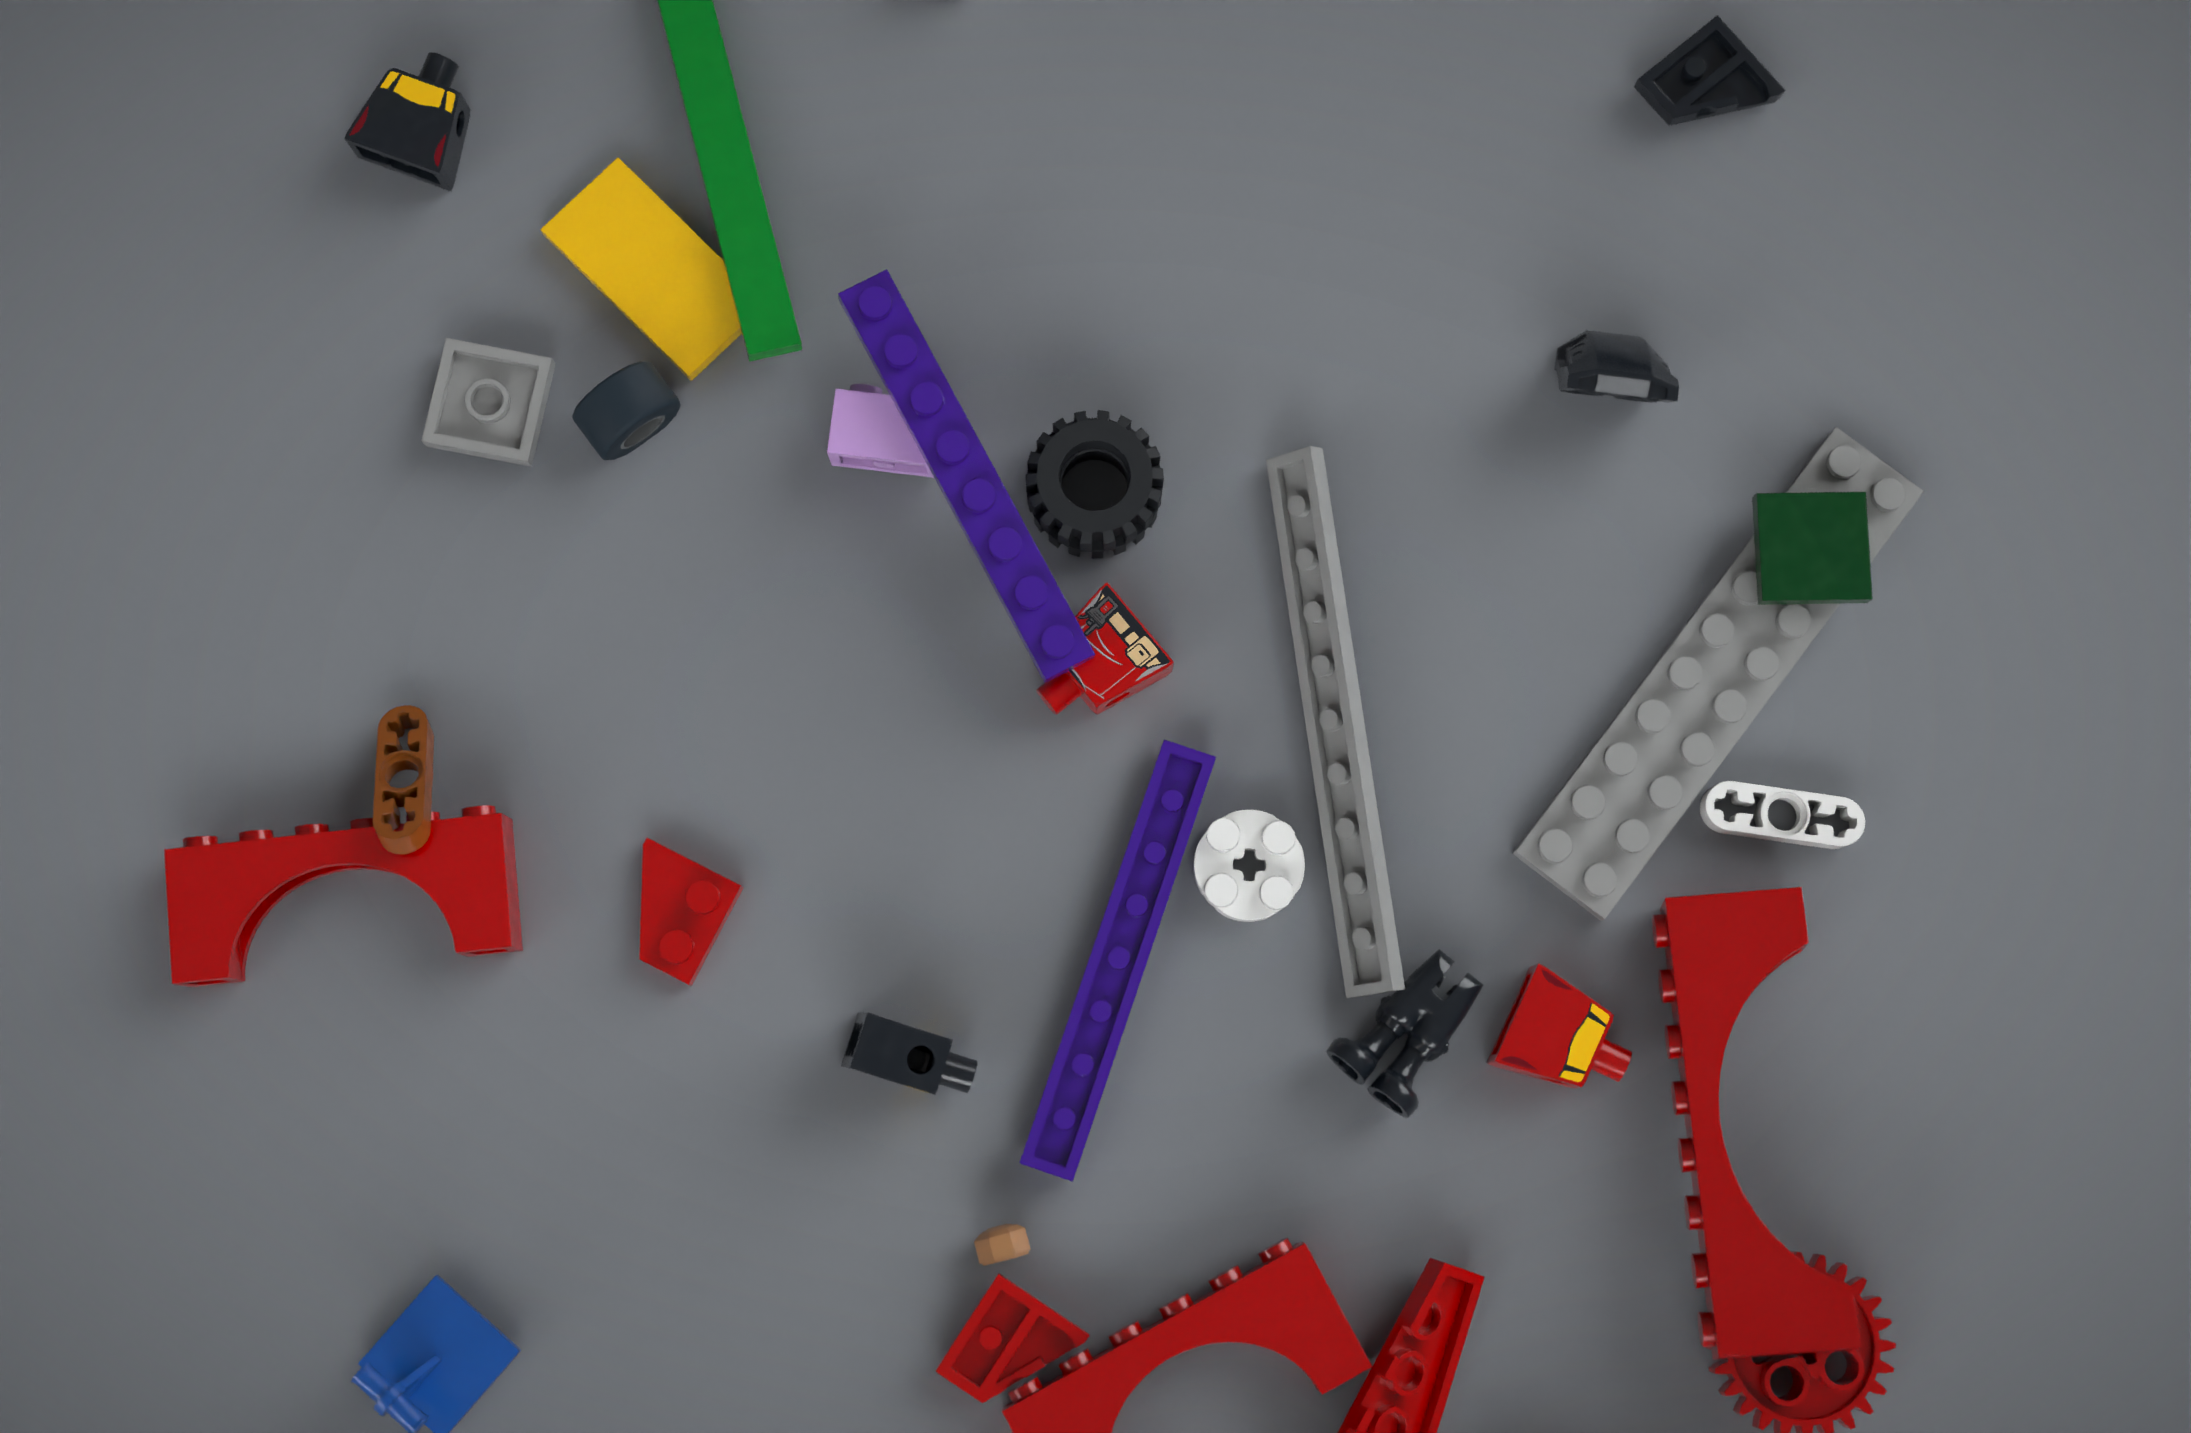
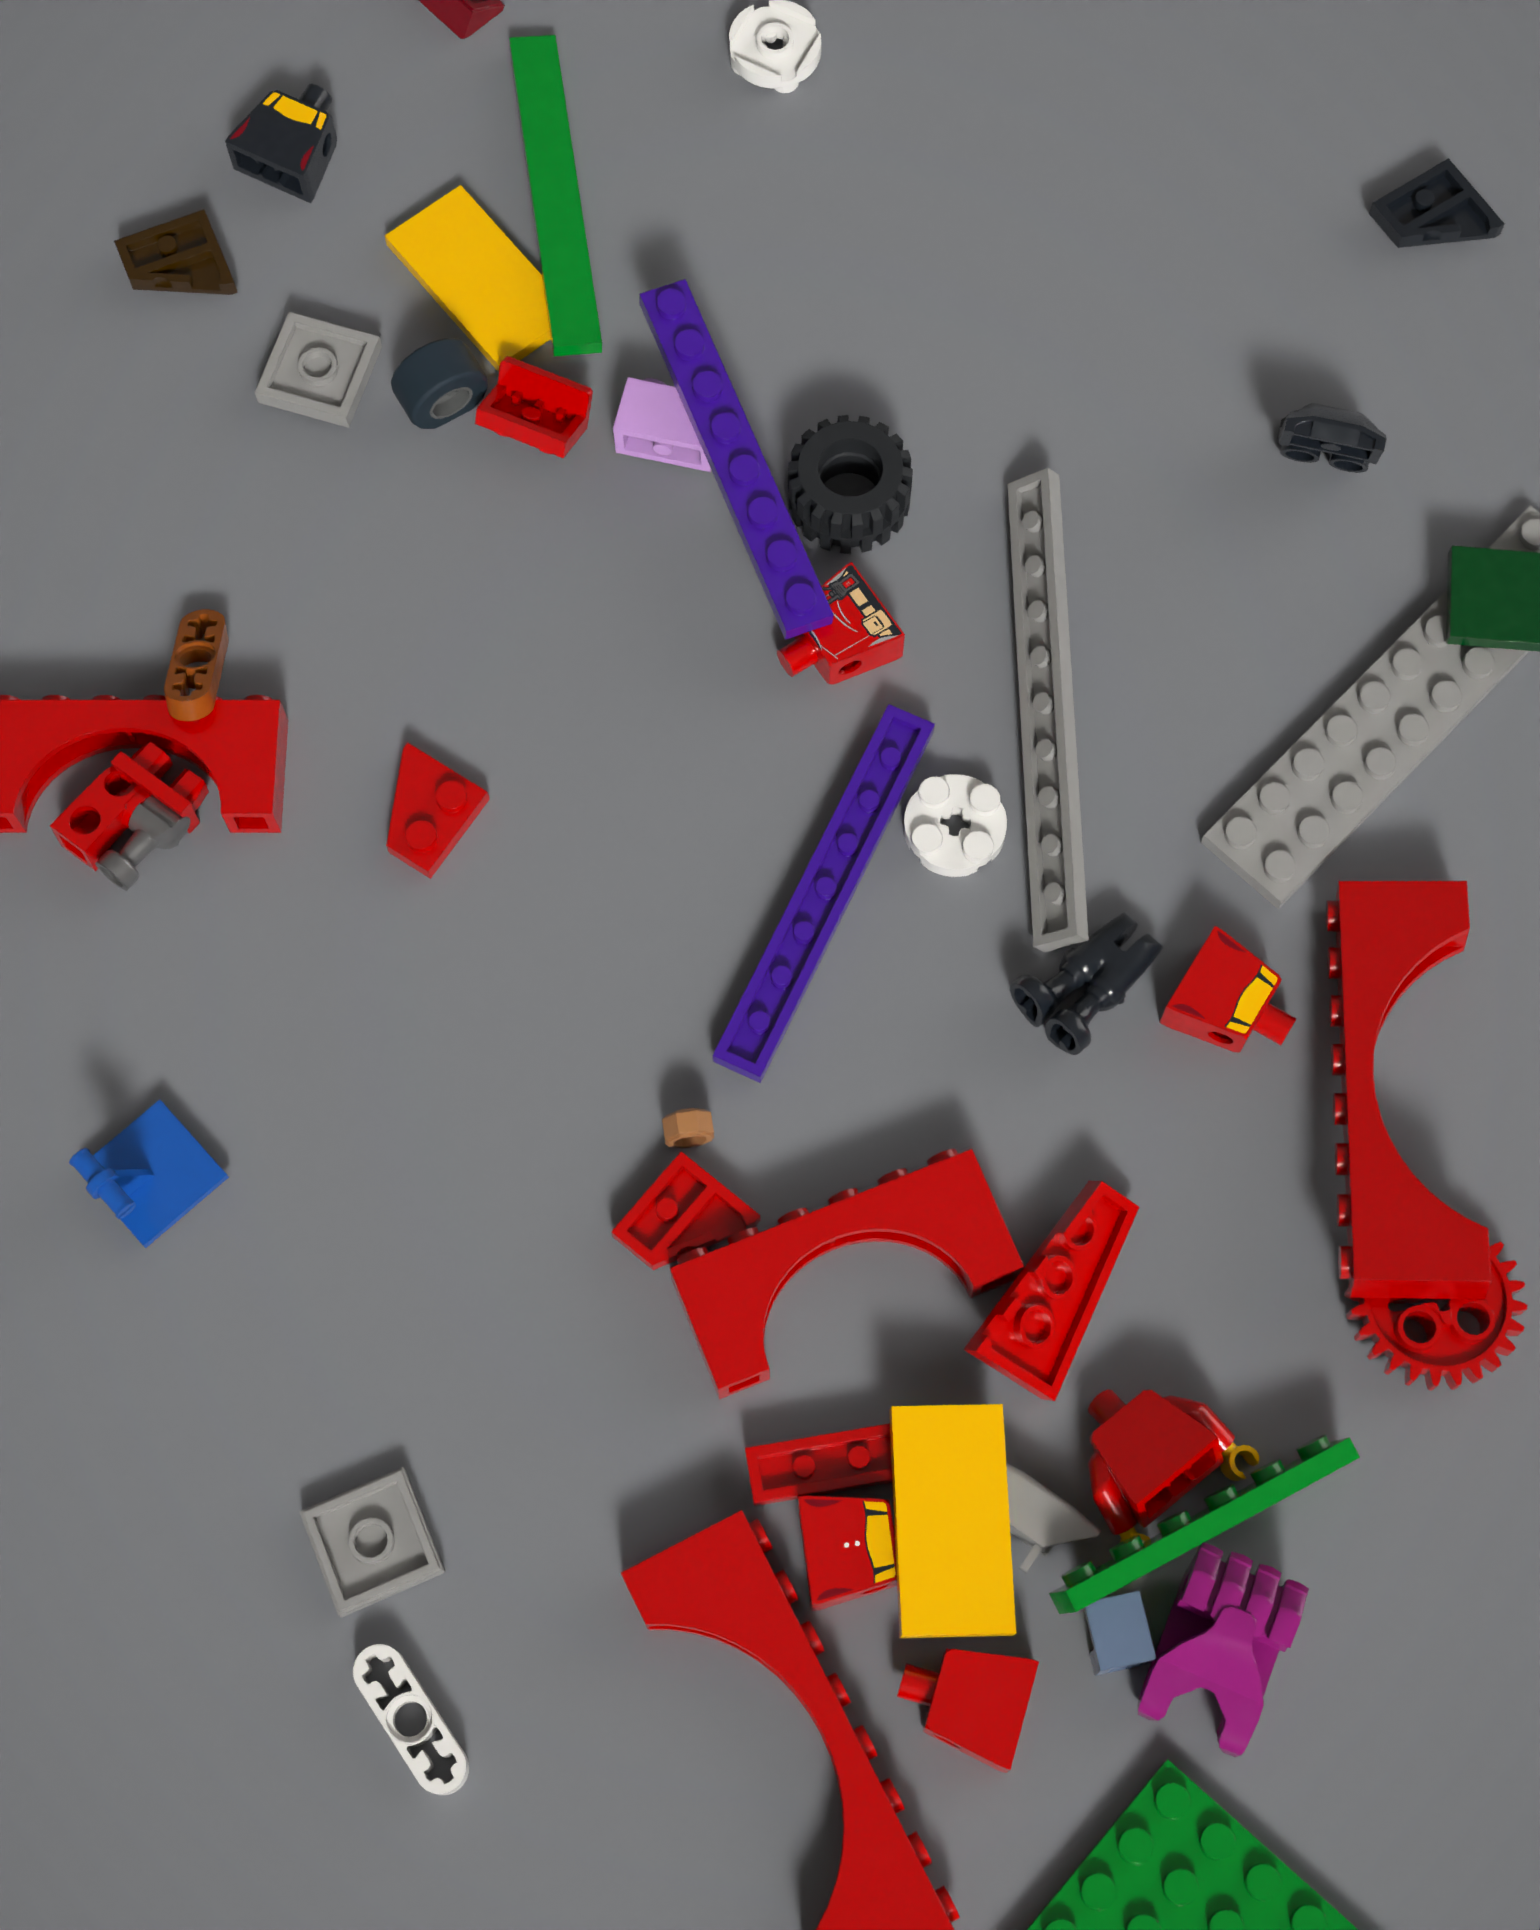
camera: 10 degrees right, 10 degrees down
(310, 280) = (177, 258): none -> dark brown wing
(356, 939) = (133, 798): none -> red hips
(737, 427) = (536, 407): none -> red bracket
(882, 1049) = (599, 940): black torso -> none
(1824, 805) = (1491, 850): white beam -> none

